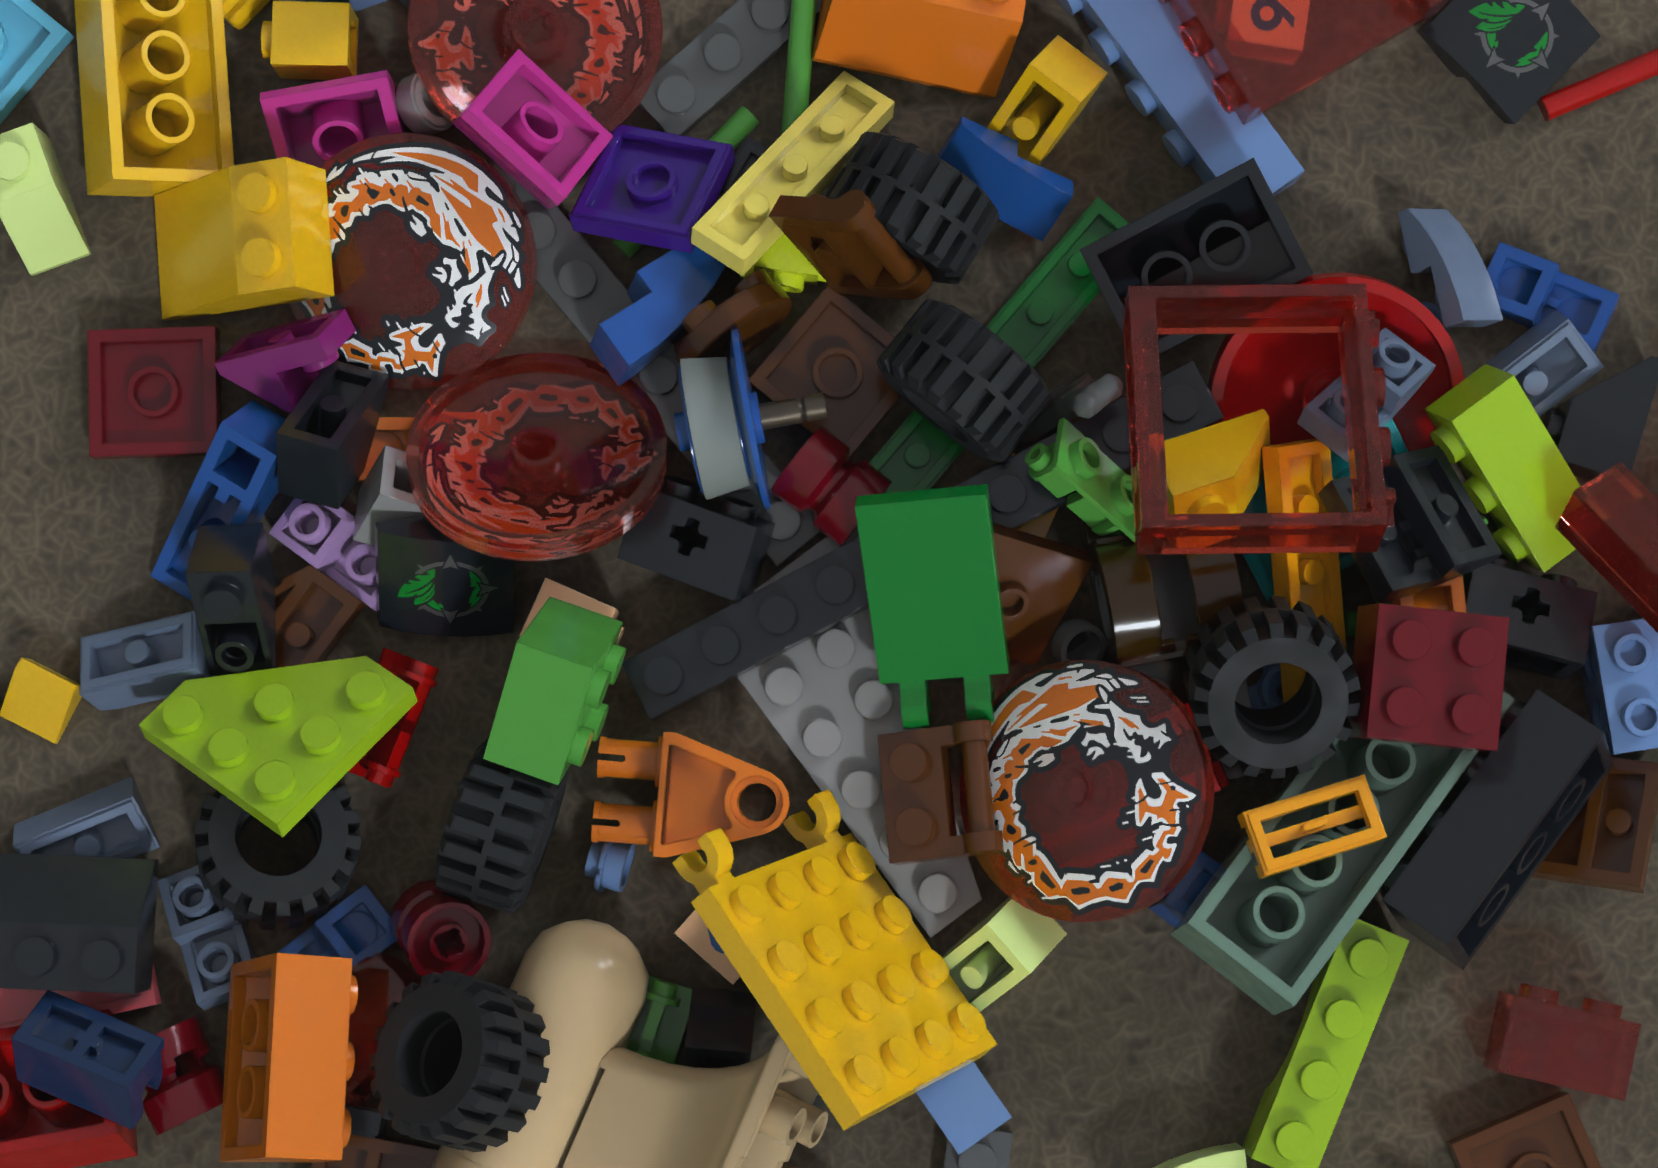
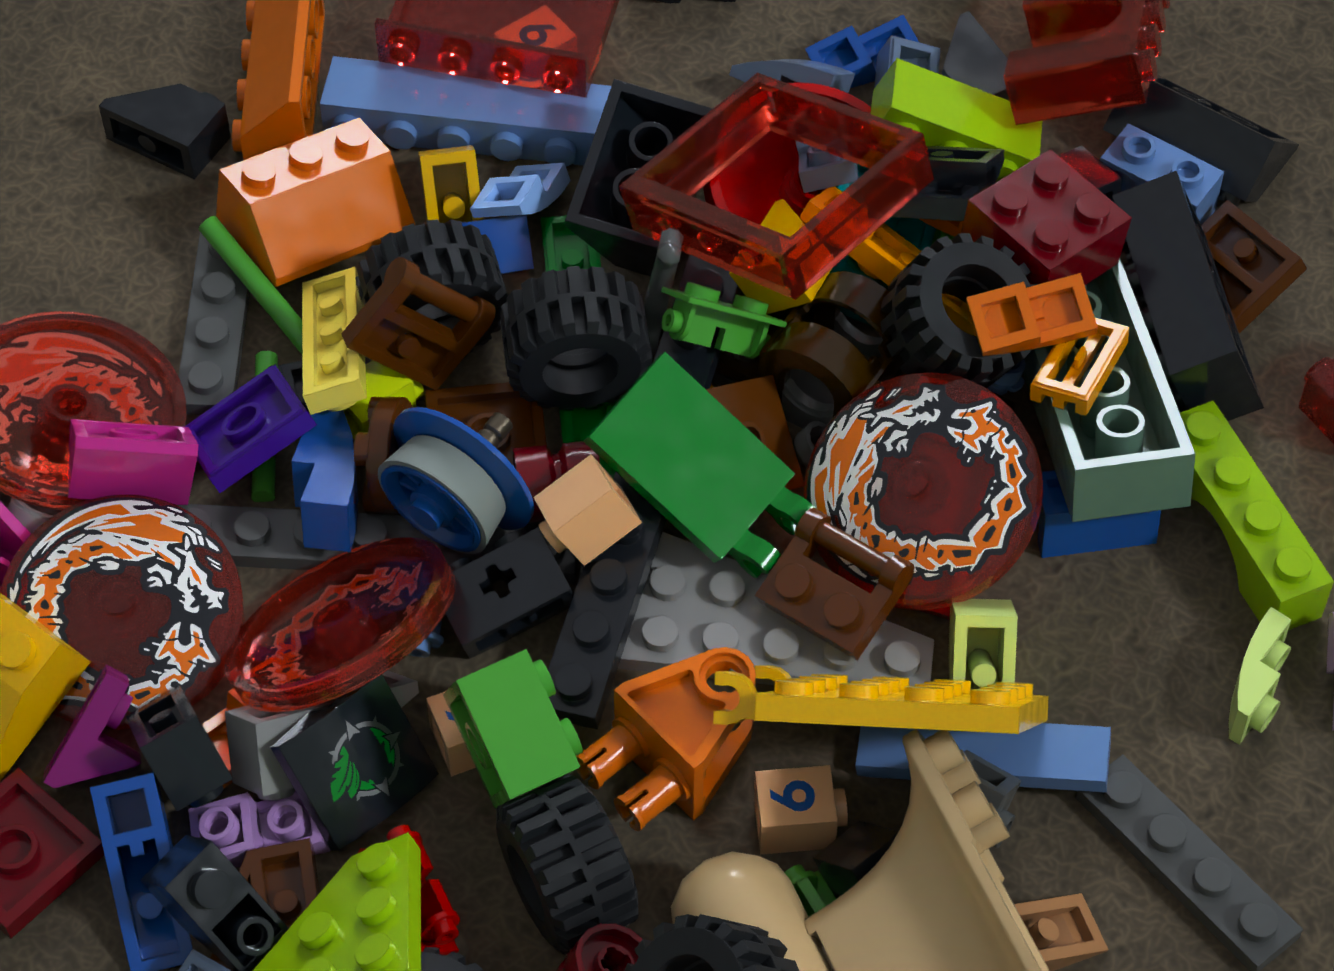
camera: 40 degrees left, 30 degrees down
(609, 865) = (667, 846): medium blue plate -> none
(806, 552) = (585, 511): none -> light nougat brick
(1095, 169) = (523, 192): none -> light blue slope
(1305, 759) = (1033, 316): none -> orange slope

